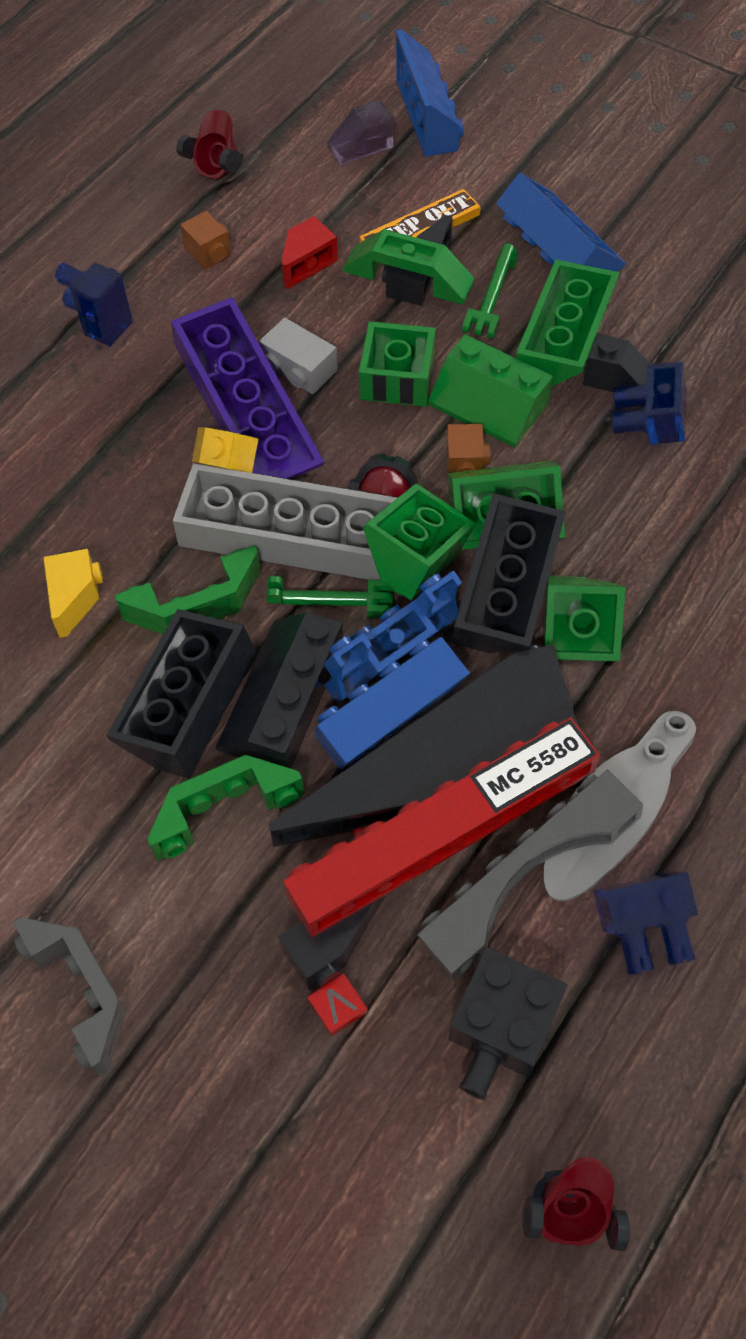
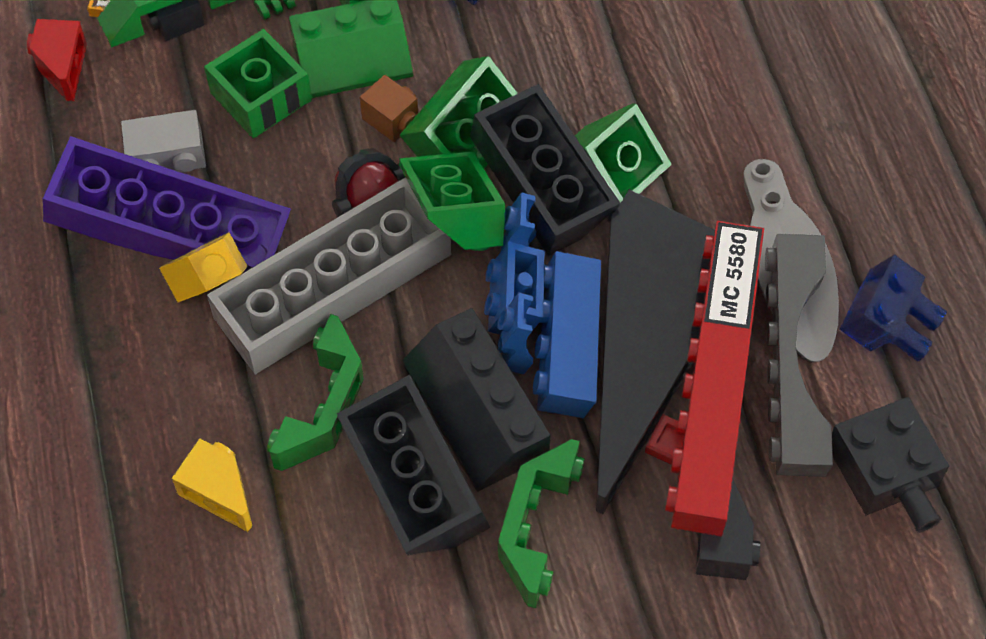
camera: 50 degrees left, 0 degrees up
(337, 1004) = (779, 567): red tile -> none
(377, 599) = (451, 278): green hinge -> none

